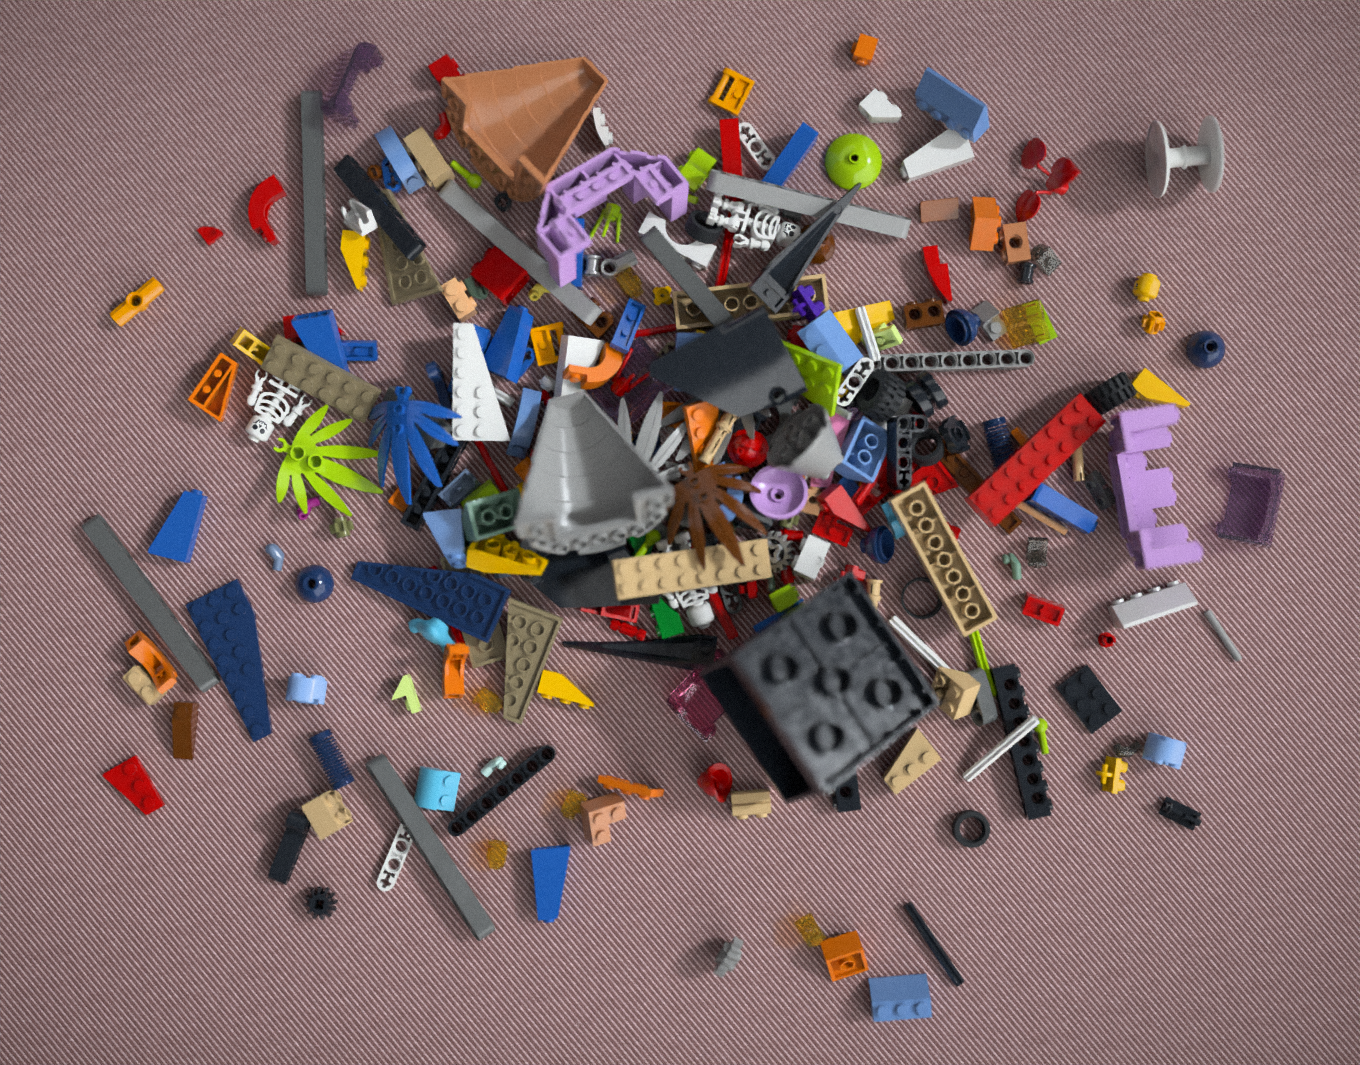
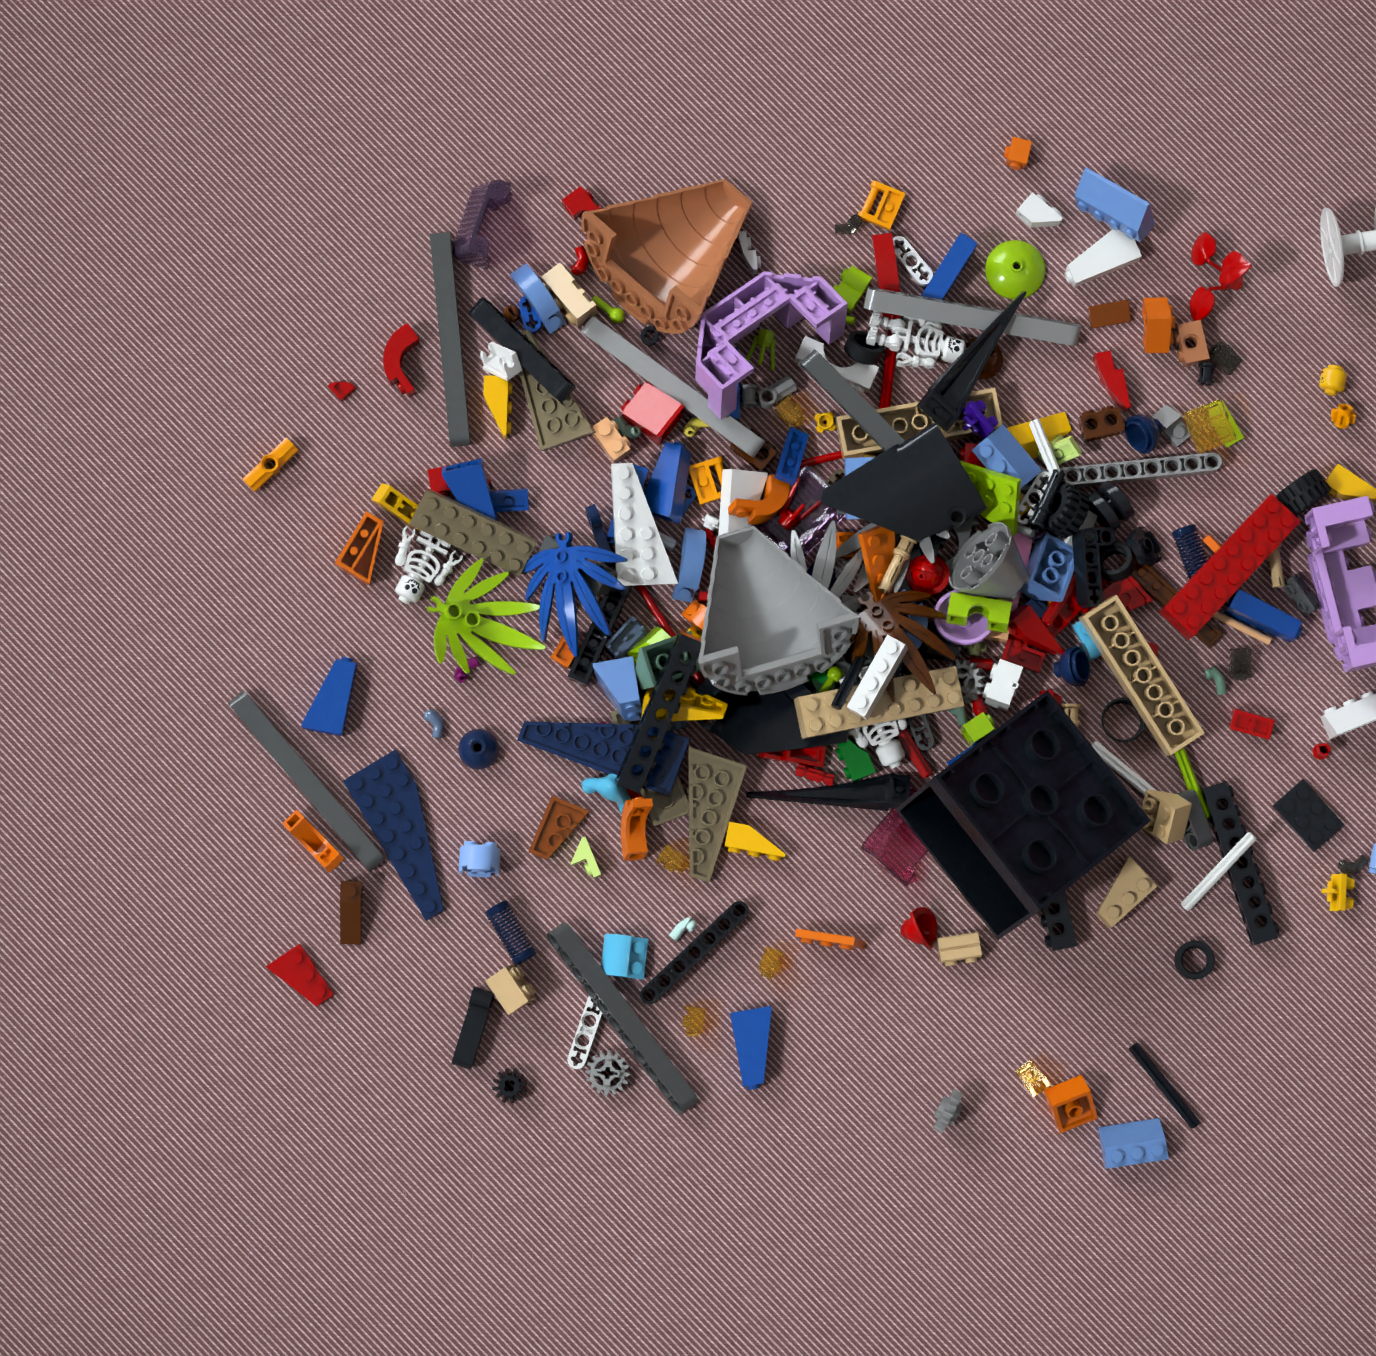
camera: 10 degrees left, 5 degrees down
(143, 684) = (306, 867): tan brick -> none
(341, 527) = (503, 687): olive gear -> none
(381, 662) = (556, 826): none -> dark orange wing
(411, 905) = (607, 1082): none -> light grey gear
(455, 627) = (636, 781): none -> black brick
(598, 815) = (797, 973): nougat brick -> none
(661, 550) = (848, 683): none -> black axle
(688, 548) = (877, 677): none -> white brick
(699, 111) = (851, 225): none -> clear smoke arm
(750, 588) = (941, 721): red tile -> none
(791, 215) = (954, 329): dark grey slope -> none
(808, 489) = (963, 605): none -> lime arch
(861, 392) = (1043, 508): none -> black pin
(1040, 729) = (1259, 848): lime bar -> none

